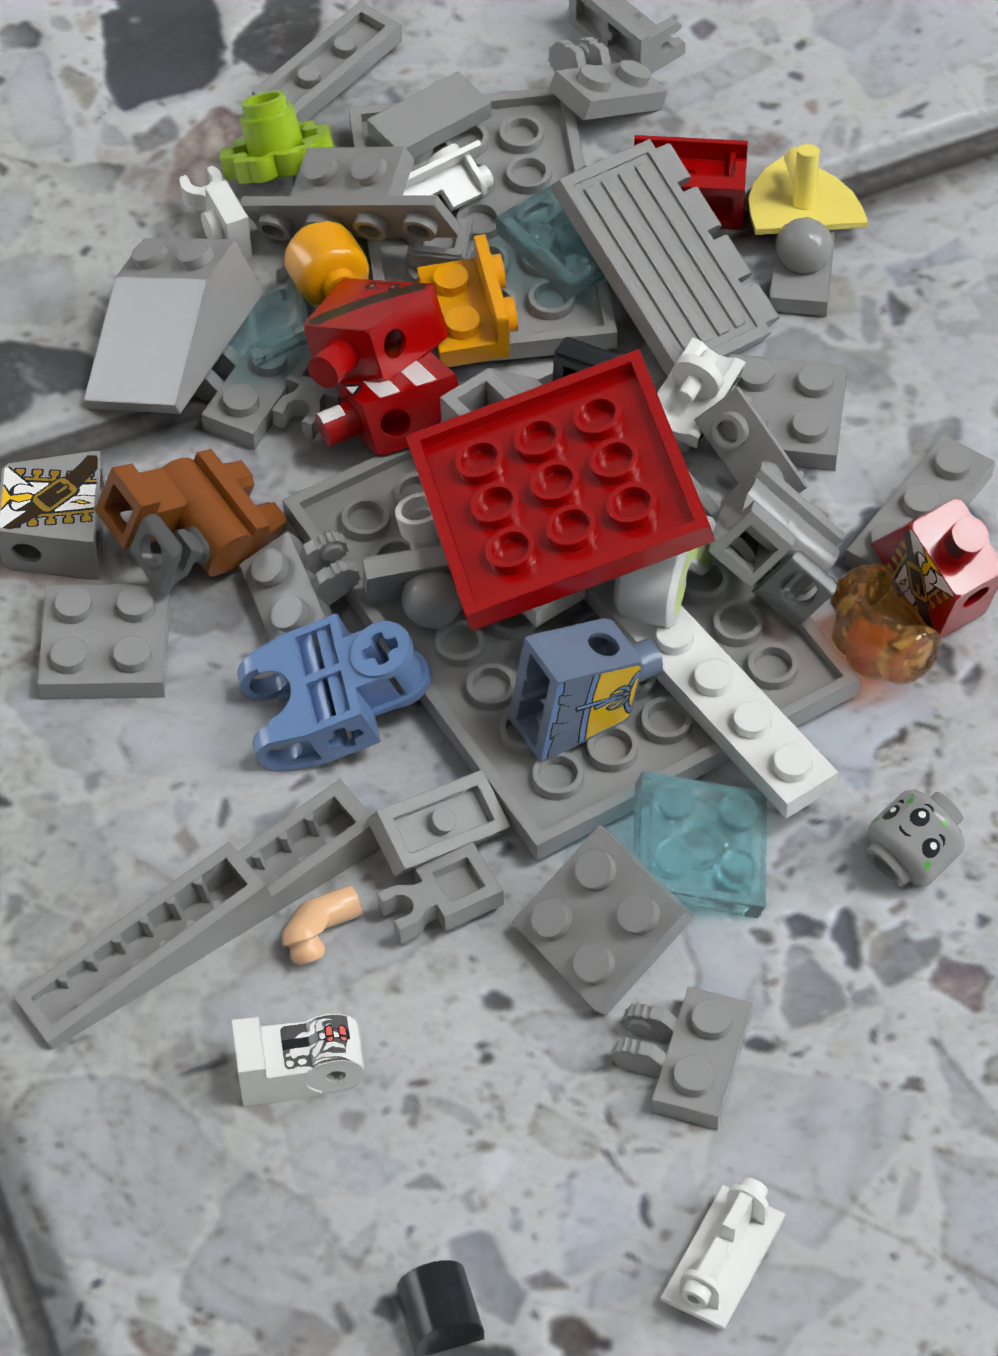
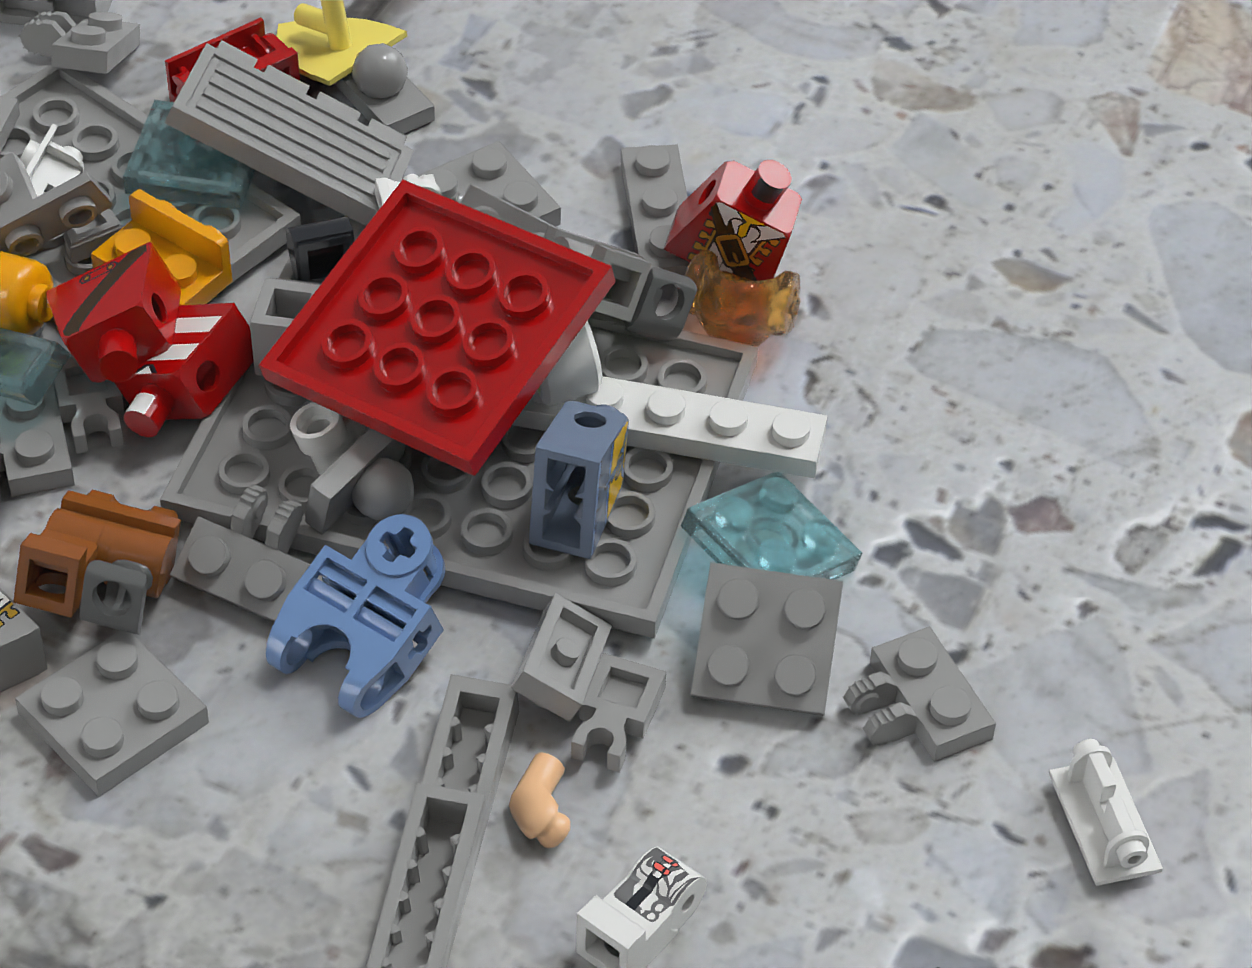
camera: 45 degrees left, 5 degrees down
(916, 838) = (916, 432): light grey head -> none

